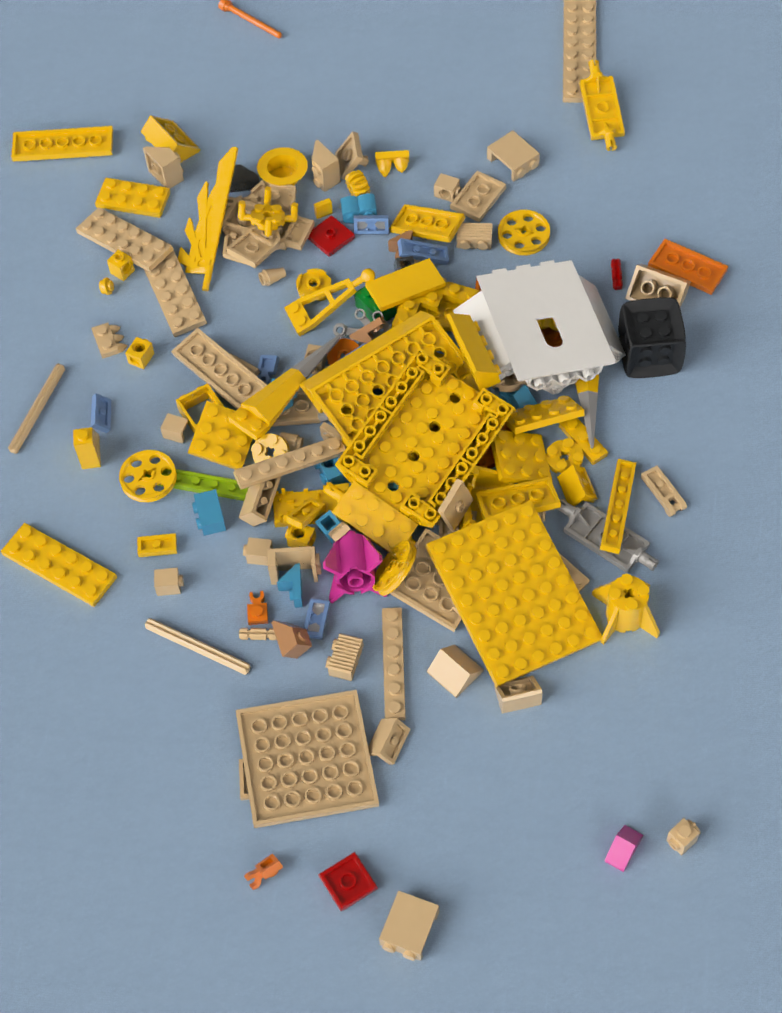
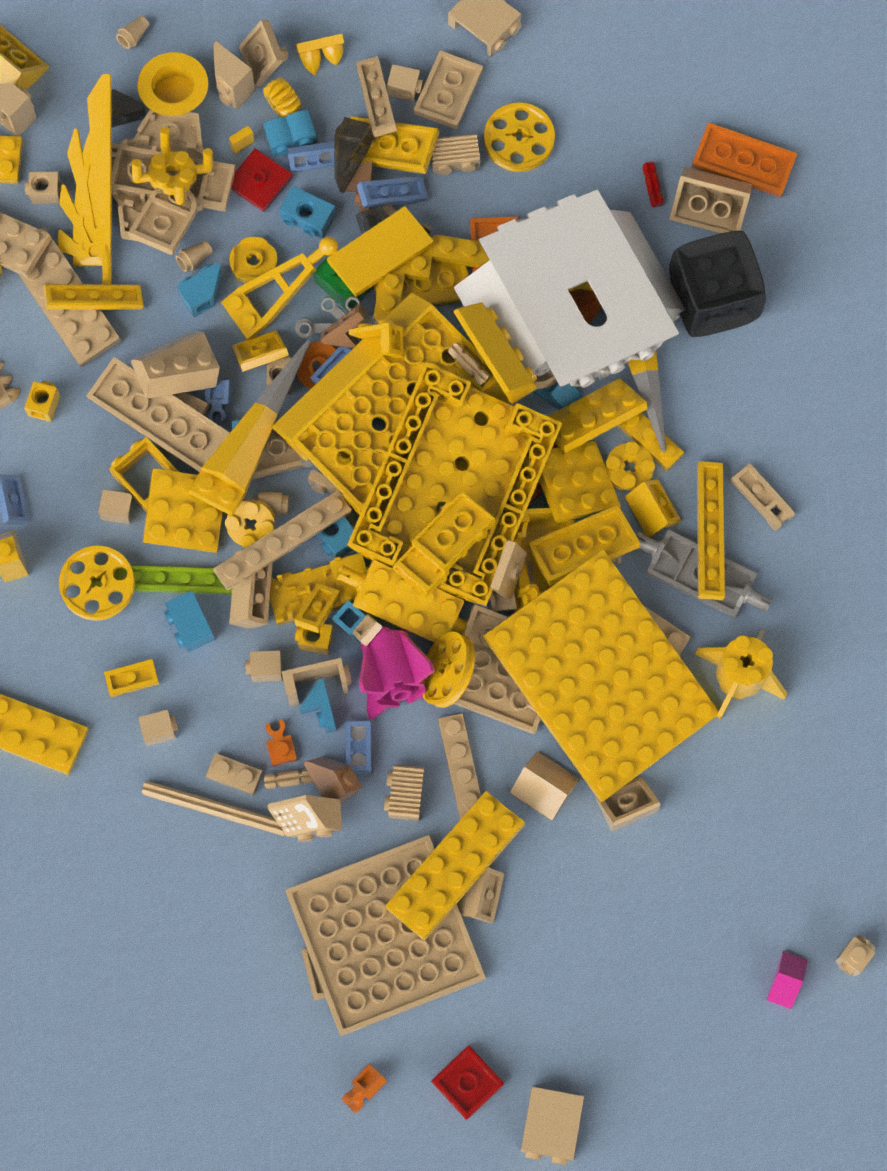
camera: 15 degrees left, 15 degrees up
(176, 219) = (50, 195): none -> tan brick
(193, 290) = (93, 297): none -> yellow tile
(217, 624) = (234, 774): none -> tan piece
(241, 339) = (177, 366): none -> tan wedge
(261, 135) = (132, 32): none -> tan cone
(264, 656) = (307, 816): none -> tan slope
(272, 297) = (201, 290): none -> dark azure slope
(304, 339) = (259, 350): none -> yellow tile
(358, 257) = (299, 201): none -> dark azure brick
(371, 713) = (455, 865): none -> yellow plate
(394, 327) = (391, 336): none -> yellow bracket
(398, 219) = (351, 145): none -> clear smoke slope
(408, 473) = (443, 543): none -> yellow piece
(424, 192) = (376, 96): none -> tan plate
(453, 358) = (468, 363): none -> tan axle

